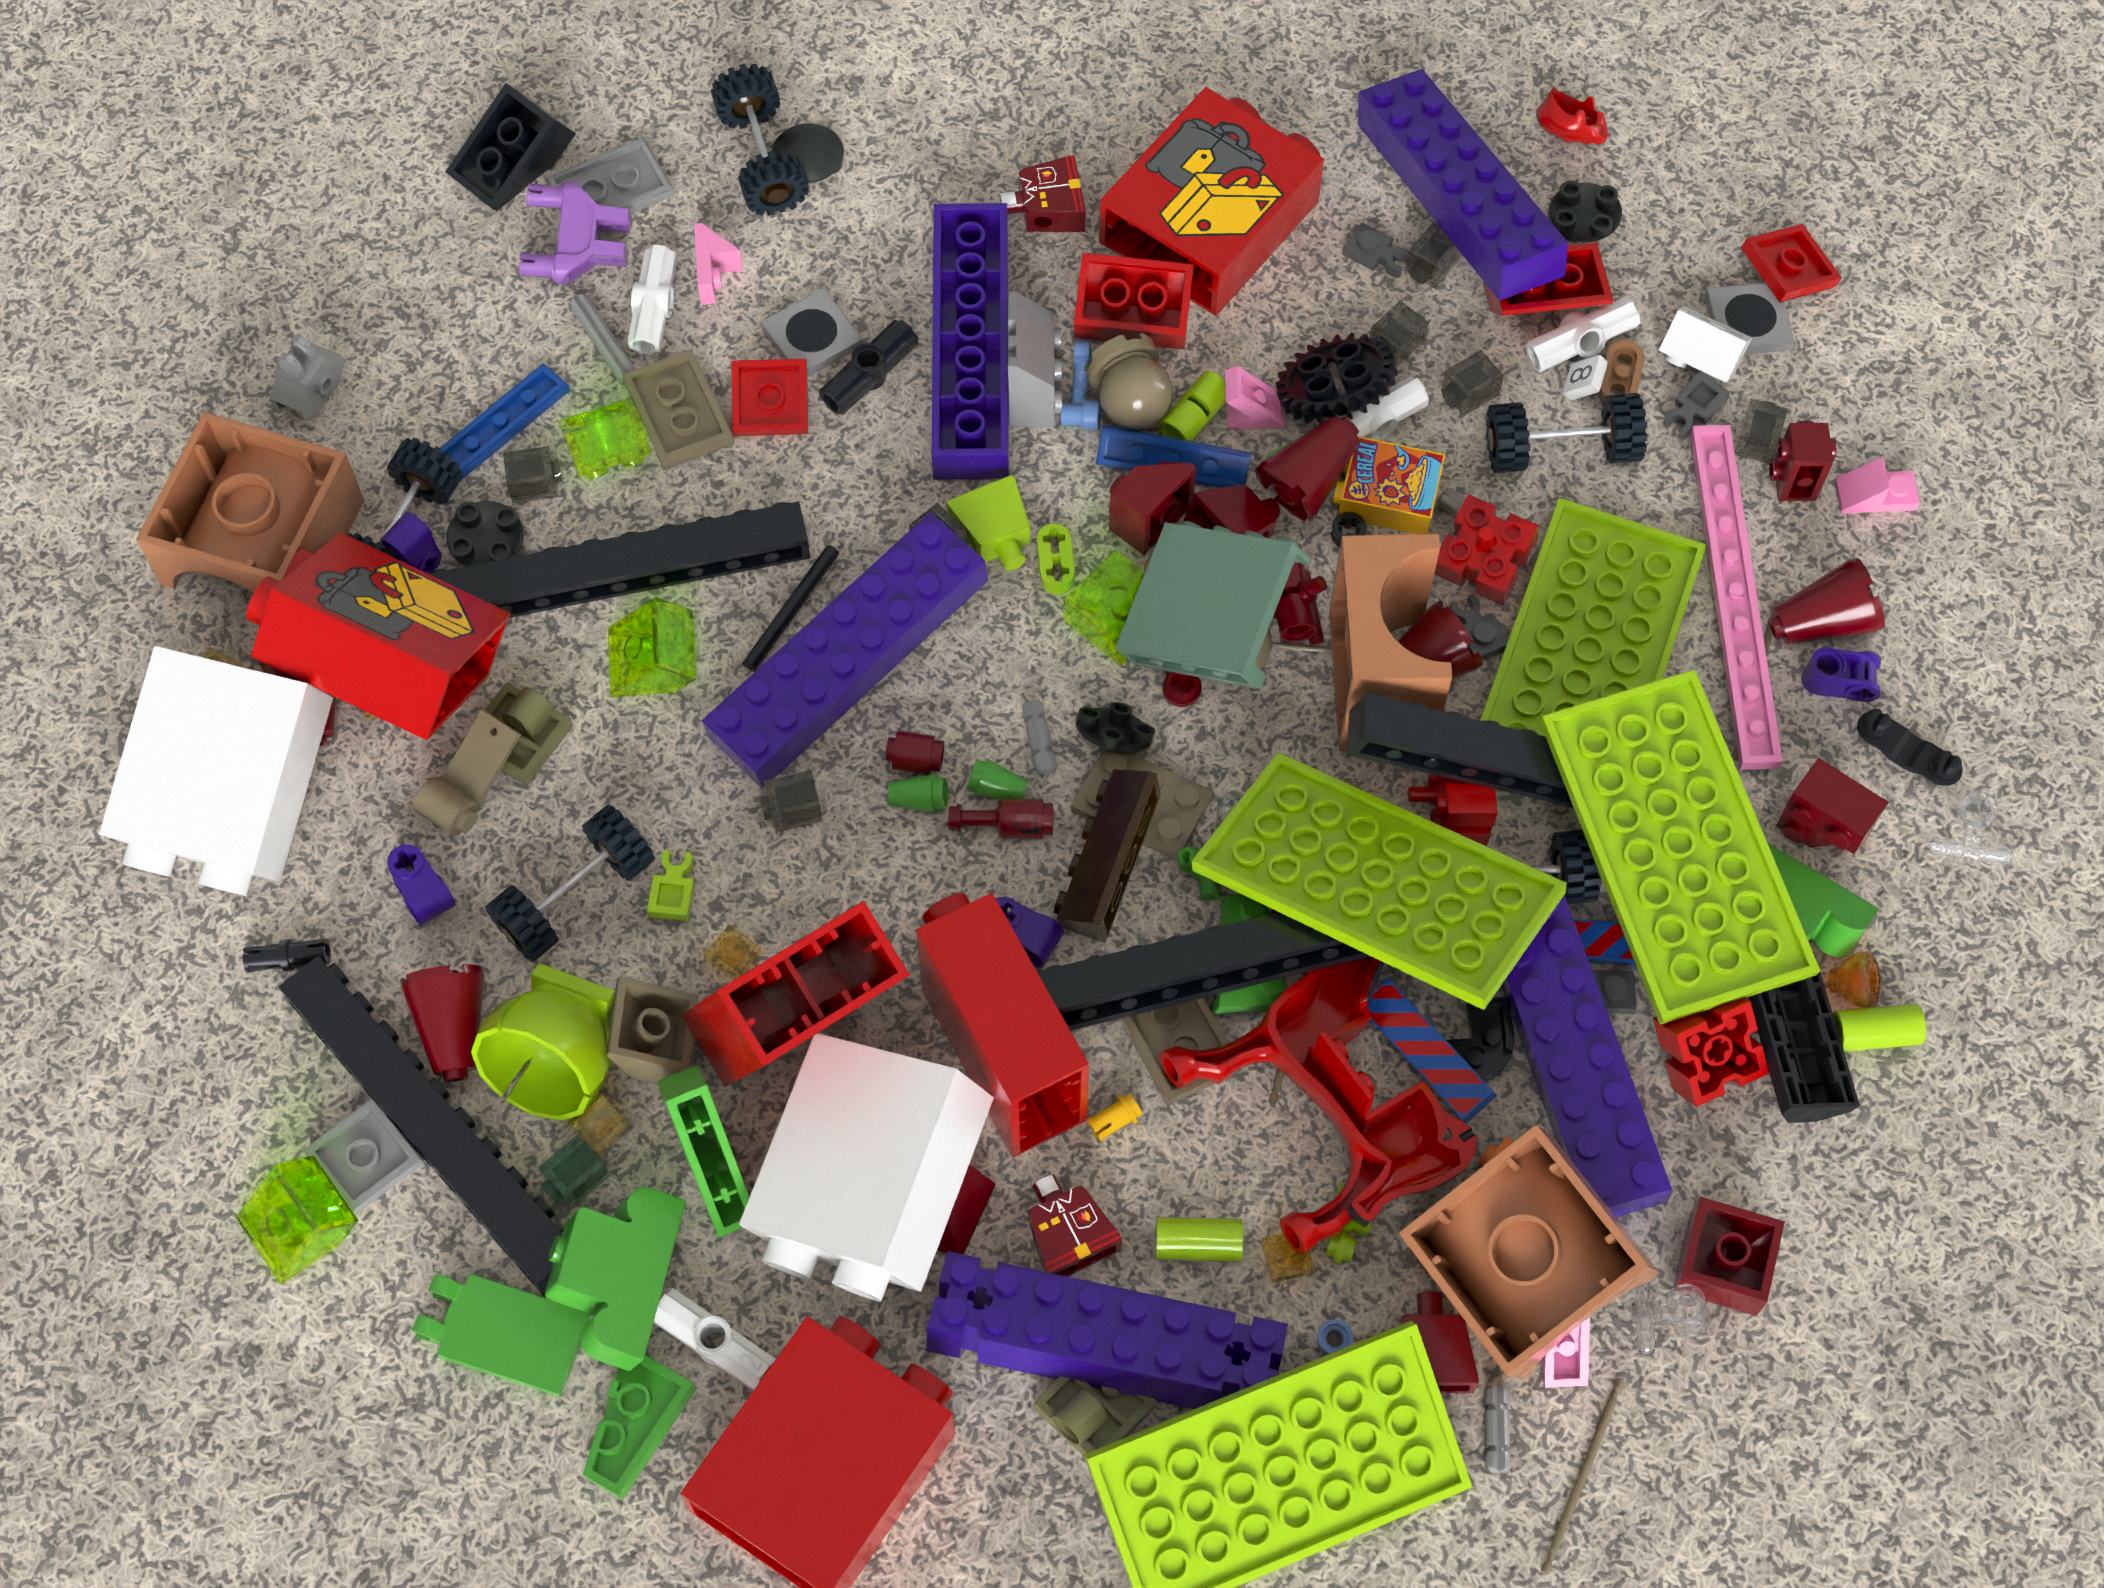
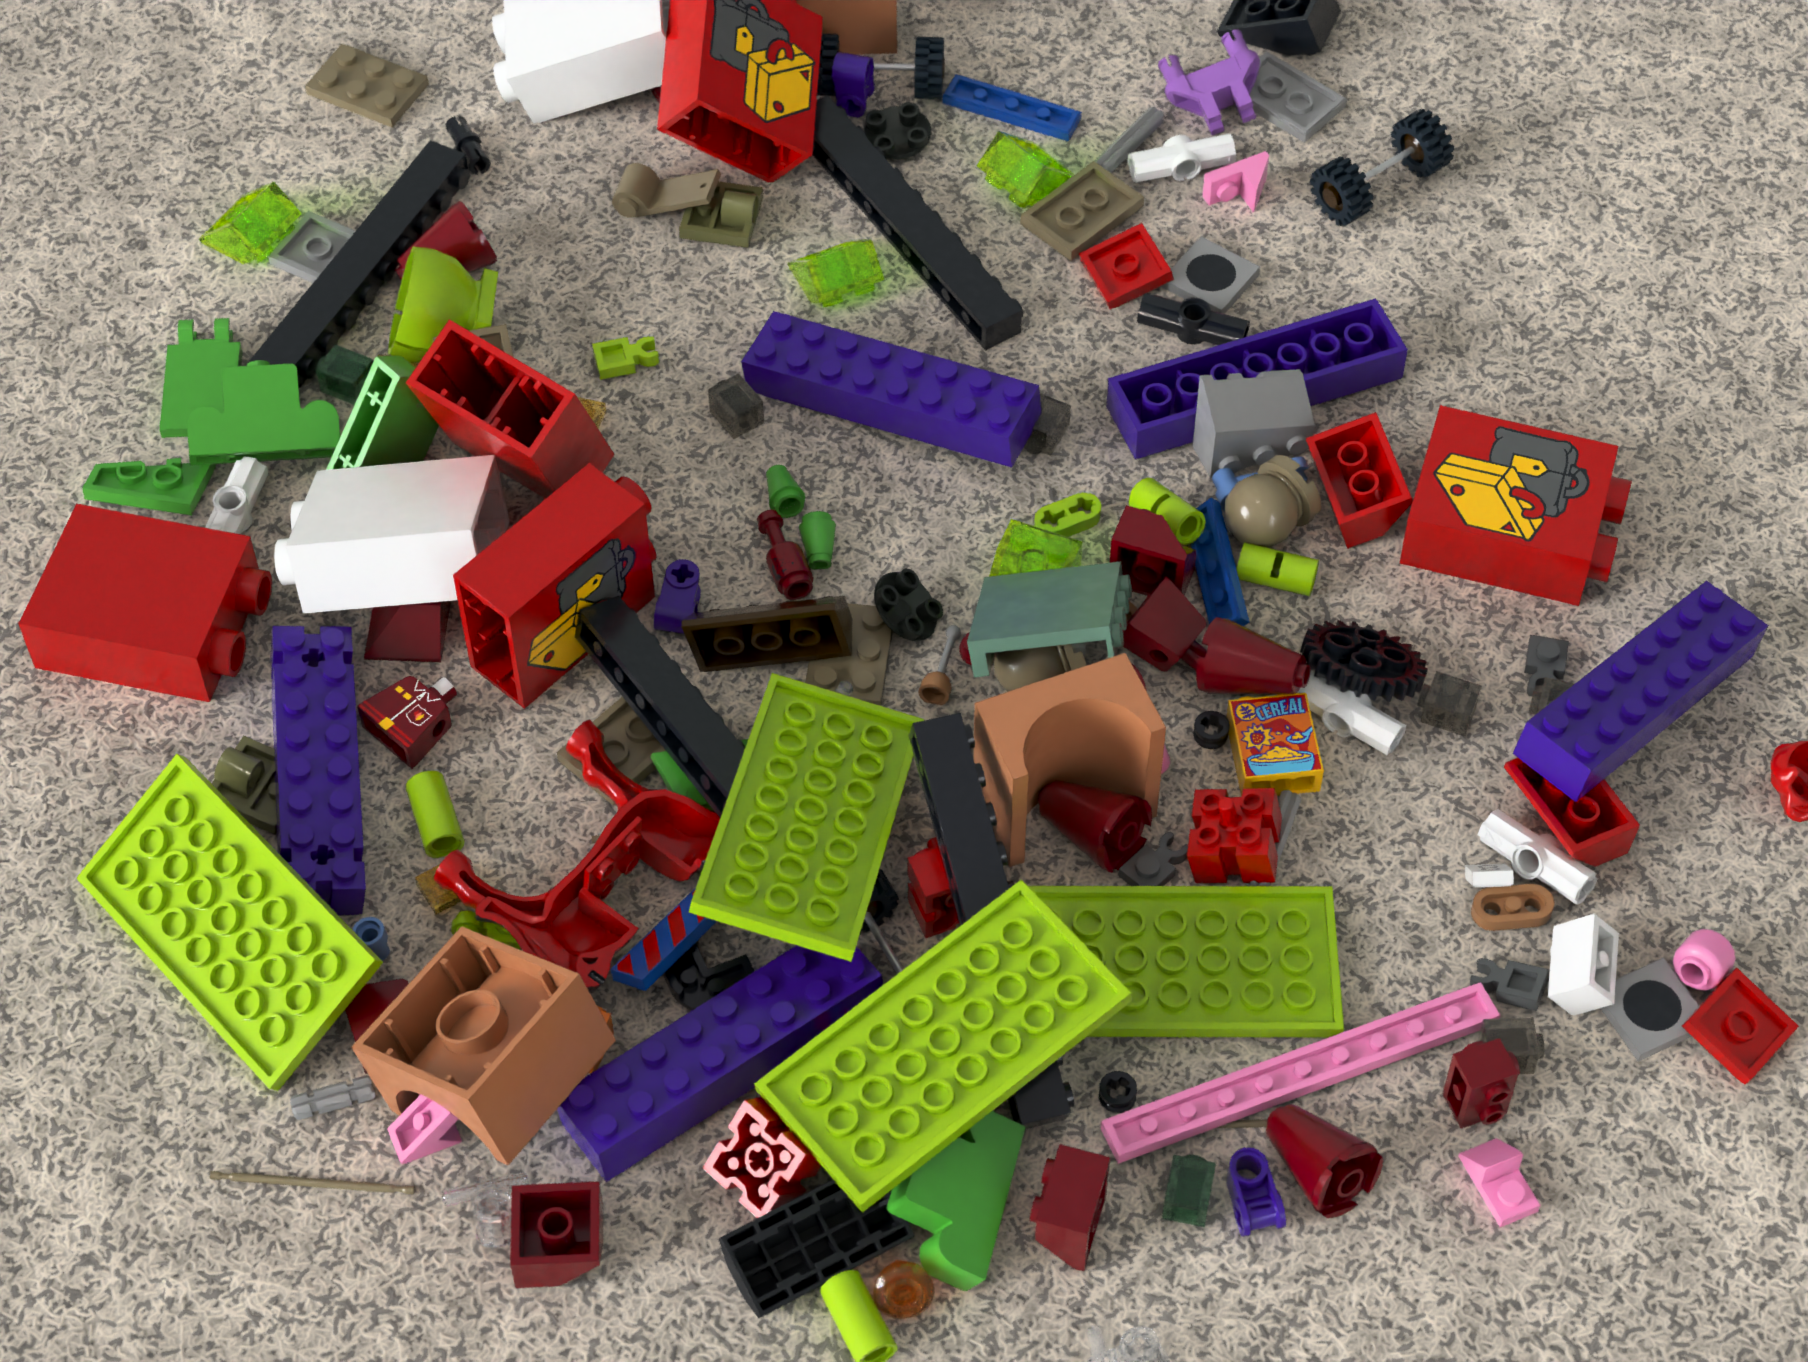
camera: 70 degrees right, 10 degrees down
(131, 1038) = (367, 85): none -> dark tan plate
(420, 888) = (557, 197): dark purple piece -> none
(532, 474) = (965, 137): clear smoke brick -> none
(616, 843) = (547, 266): black axle -> none
(790, 608) = (950, 353): black bar -> none
(816, 147) = (1400, 214): pearl dark grey dish -> none
(915, 752) = (820, 474): dark red brick -> none
(994, 521) = (1079, 457): lime torso -> none
(1039, 737) = (879, 560): light grey axle -> none
(1049, 197) = (1451, 384): dark red torso -> none
(1094, 470) = (1181, 517): none -> lime pin
(1114, 1117) = (530, 722): yellow pin -> none
(1213, 736) = (936, 685): none -> medium nougat hinge
(1251, 402) = (1306, 600): bright pink slope -> none
(1471, 383) = (1427, 779): clear smoke brick -> none
(1585, 211) = (1696, 826): pearl dark grey dish -> none
(1621, 431) = (1438, 911): black axle -> none
(1725, 259) = (1704, 959): none -> bright pink head
(1825, 720) = (1189, 1190): none -> clear green brick
(1909, 750) = (1195, 1277): black piece -> none

